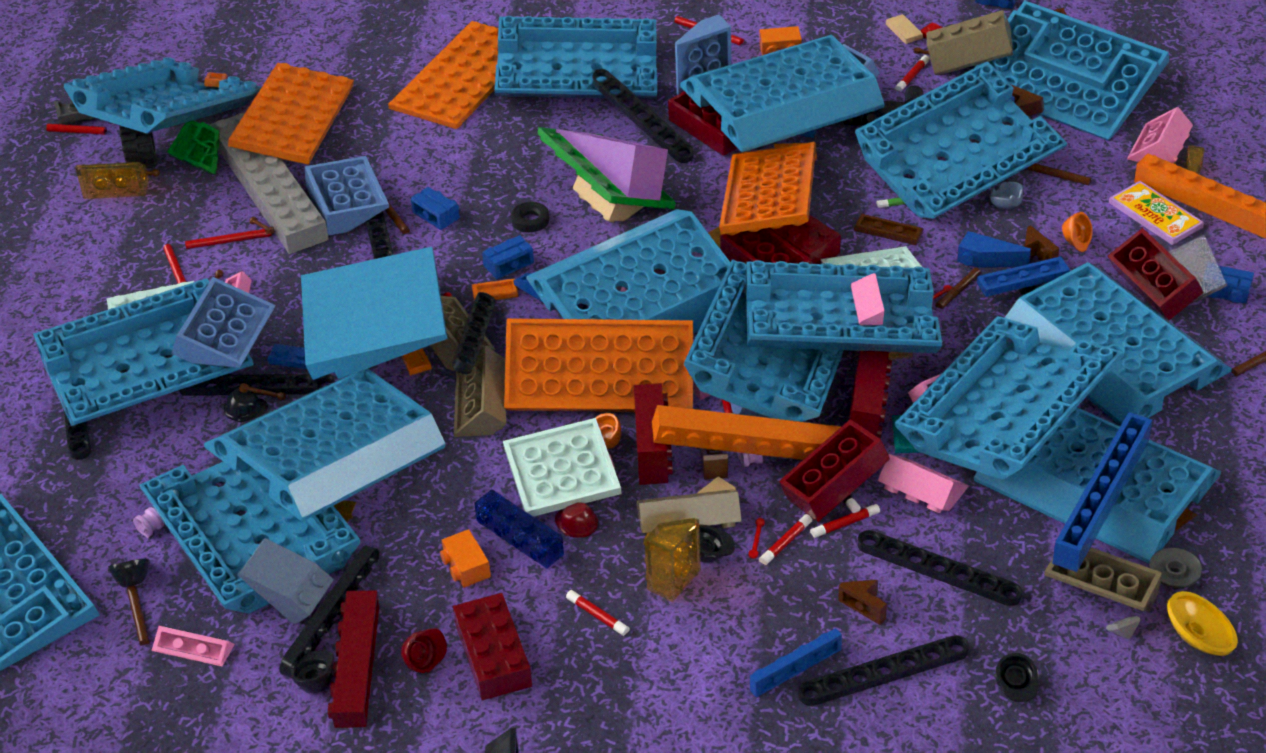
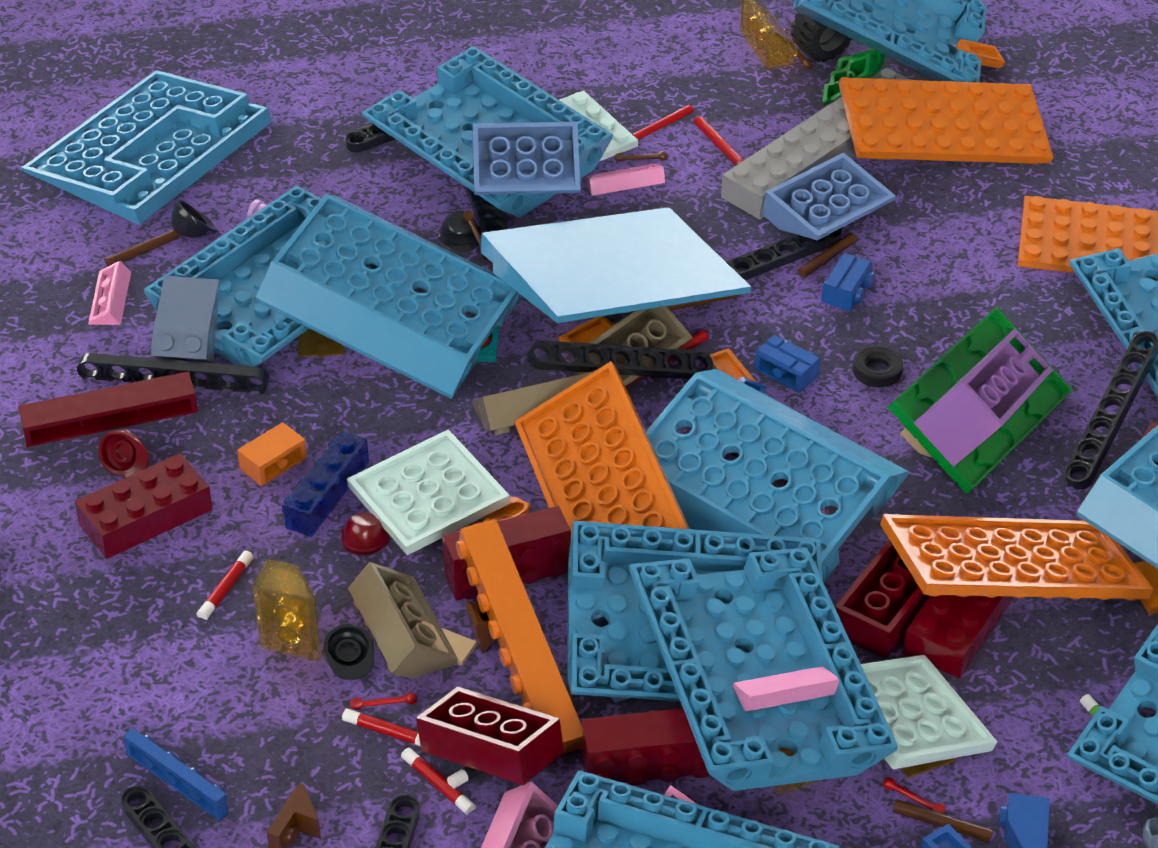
camera: 70 degrees right, 0 degrees up
(313, 671) = (79, 379): black hat -> none
(888, 229) = (1033, 720): reddish brown tile -> none

